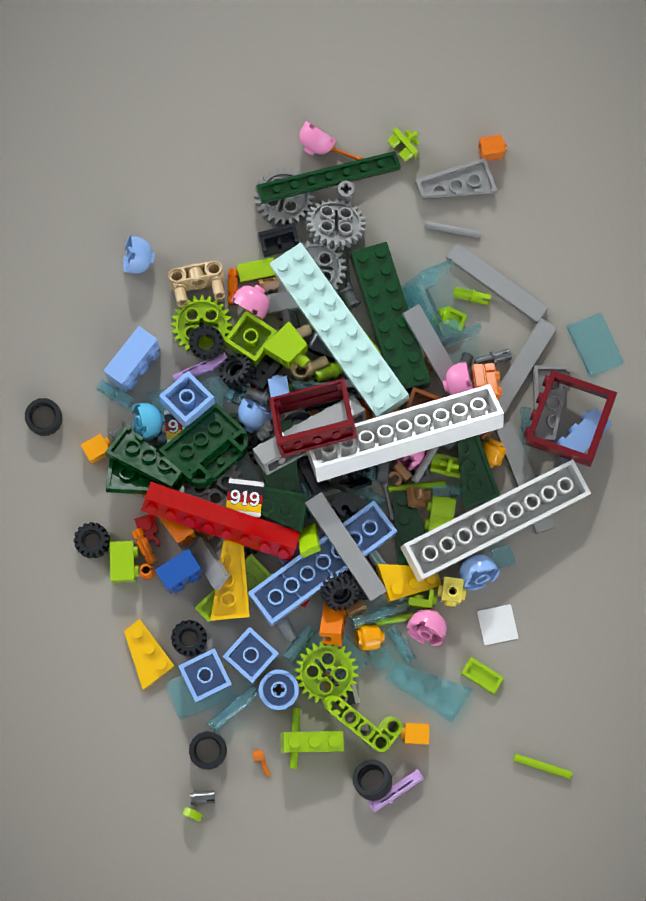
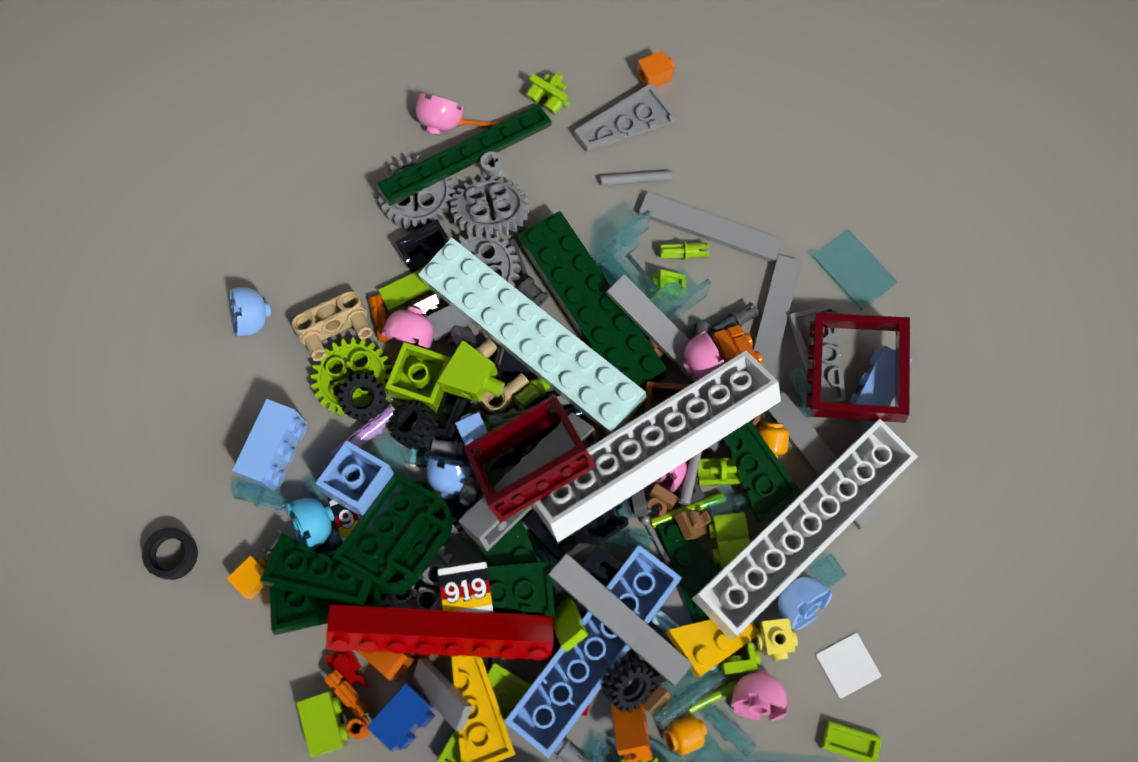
camera: 10 degrees left, 5 degrees down
(81, 534) = (257, 700): black tyre -> none

